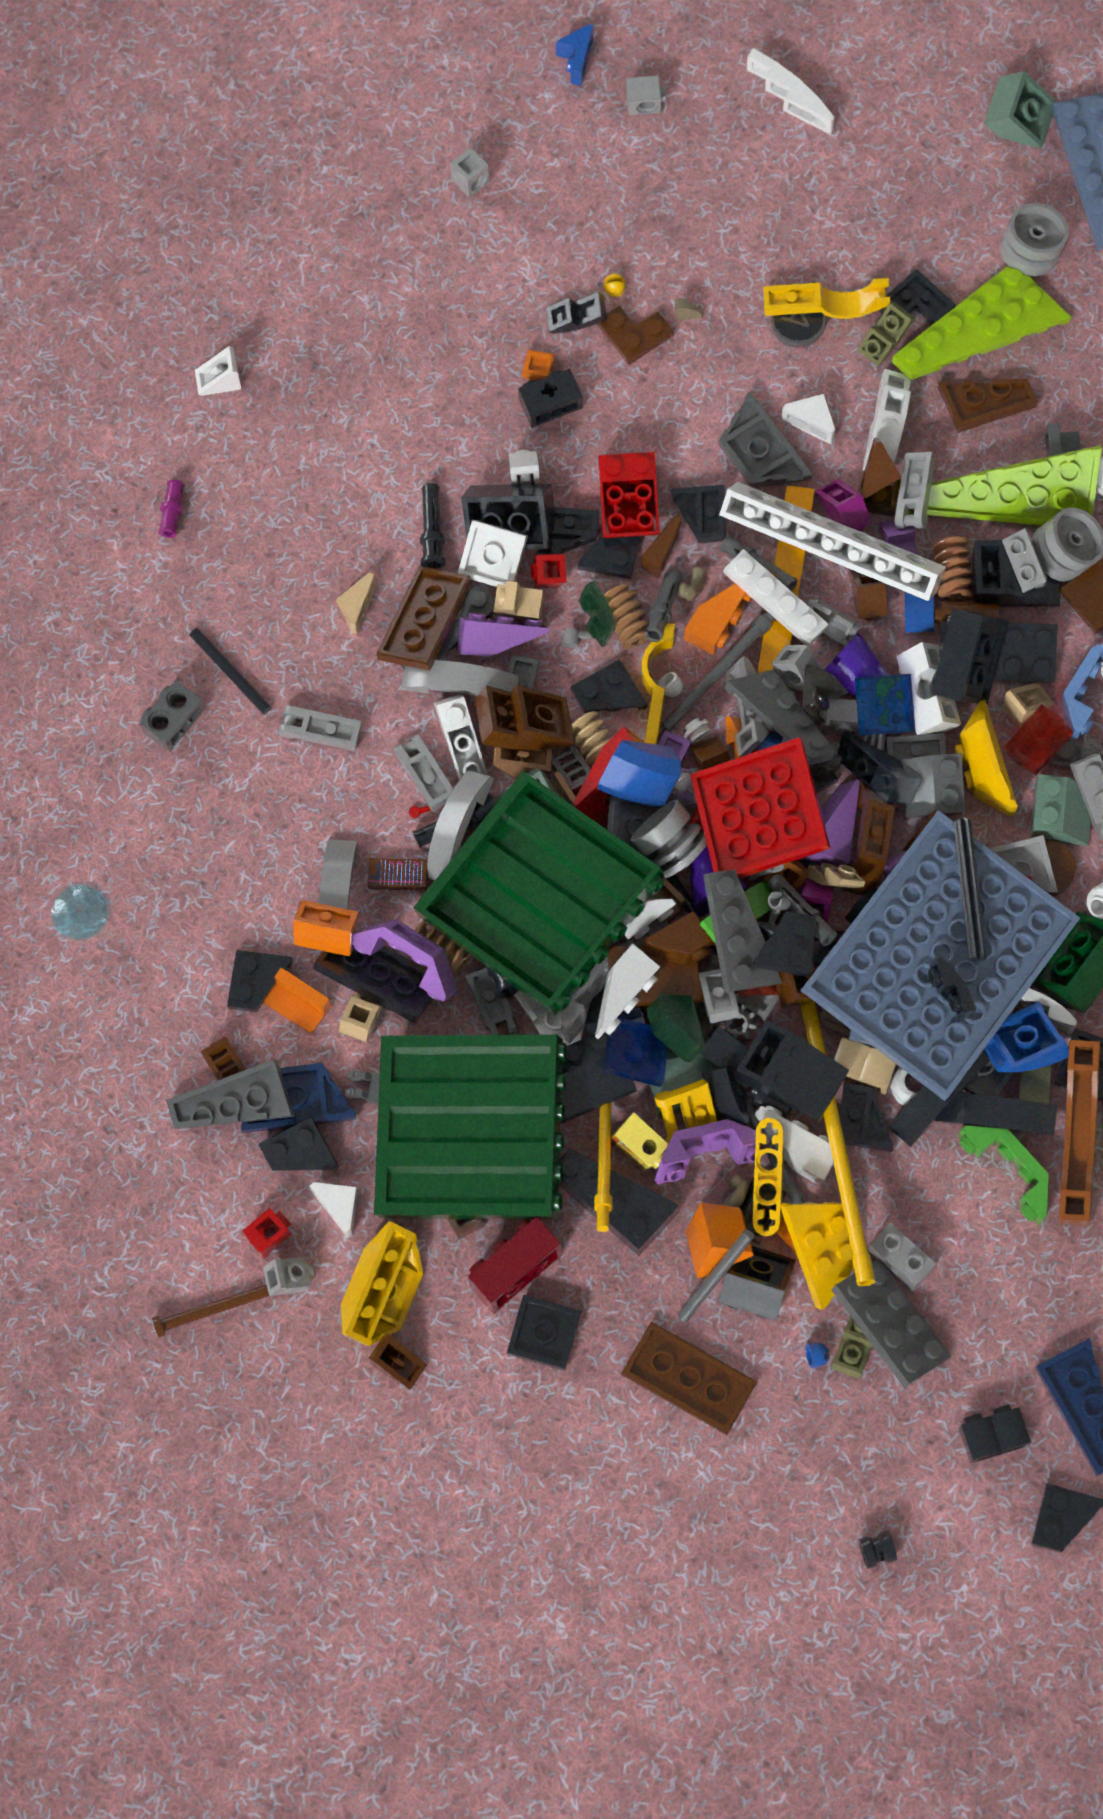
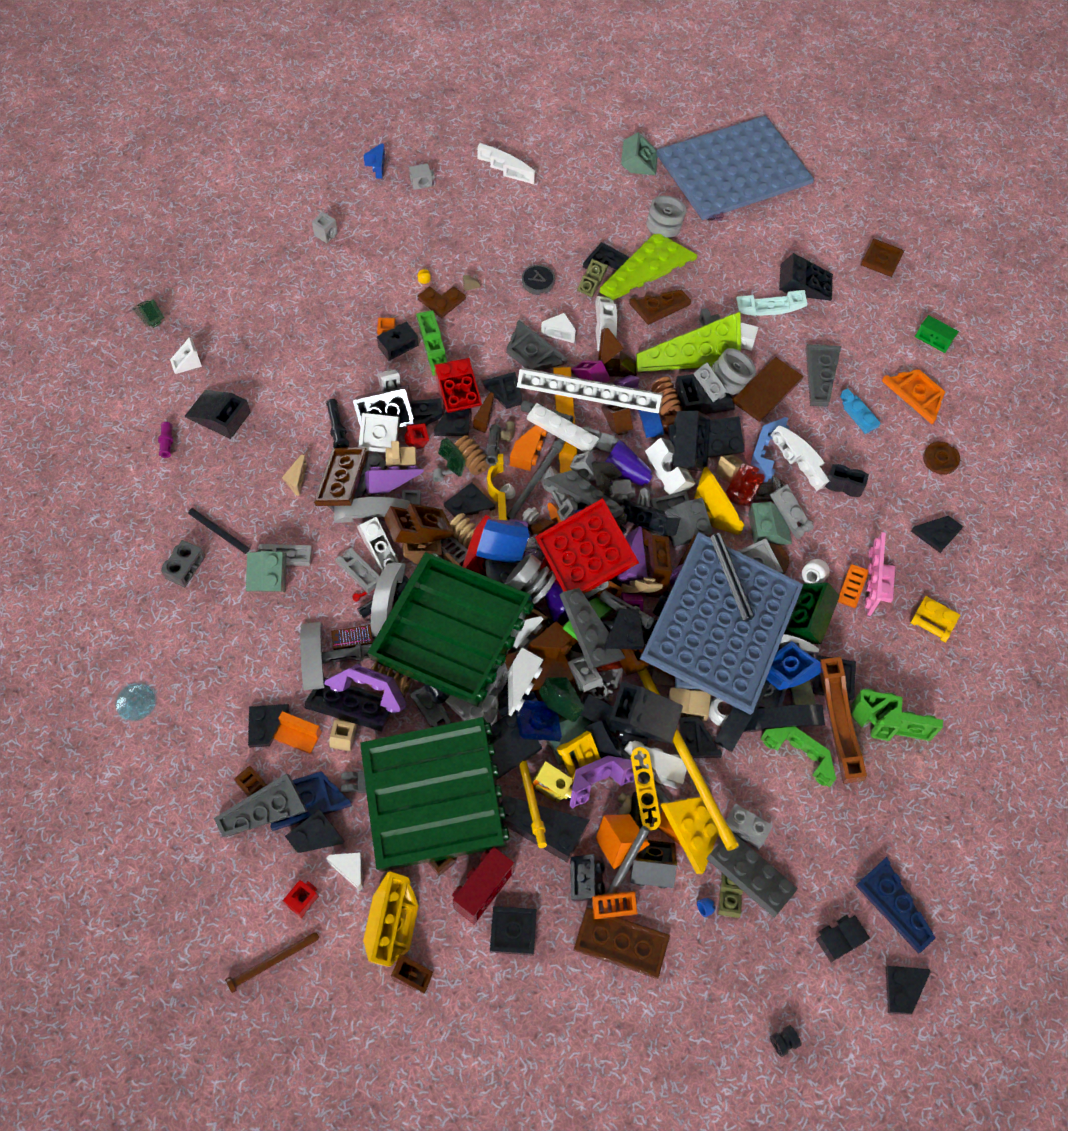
camera: 20 degrees left, 10 degrees down
(172, 283) = (149, 313): none -> clear green slope
(257, 476) = (219, 412): none -> black slope
(288, 1276) = (321, 927): light grey brick -> none
(289, 752) = (266, 571): none -> sand green slope
(324, 927) = (308, 678): orange panel -> none
(403, 899) = (358, 652): none -> dark grey pin
(573, 315) = (401, 296): black slope -> none
(605, 404) = (431, 339): none -> bright green slope
(660, 1283) = (586, 877): none -> black bracket
(712, 1328) = (630, 901): none -> orange slope
(777, 905) = (606, 605): light grey hand -> none
(816, 298) = (545, 265): yellow piece -> none
(884, 704) = (646, 478): clear blue tile -> none
(915, 490) = (633, 355): light grey plate -> none
(945, 980) = (735, 634): black slope -> none

